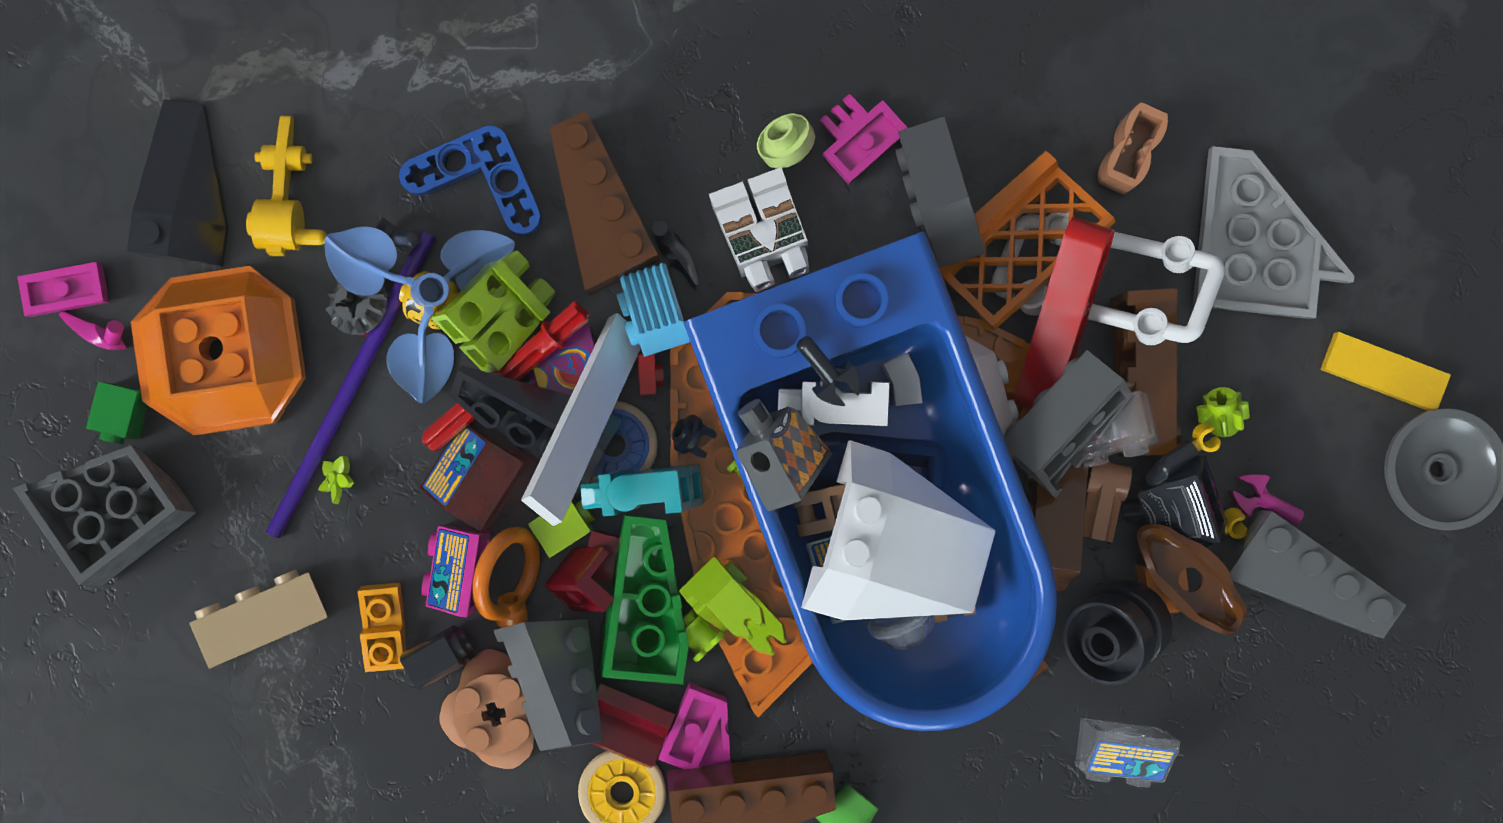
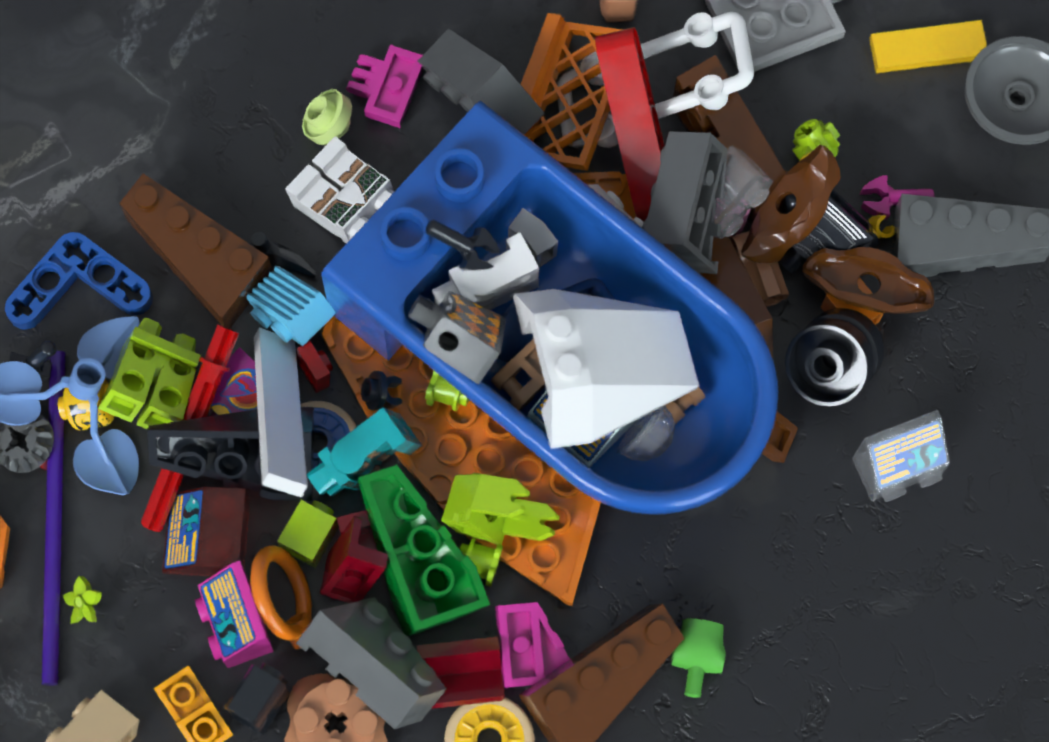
camera: 30 degrees left, 15 degrees down
(1192, 464) = (811, 184): none -> reddish brown piece

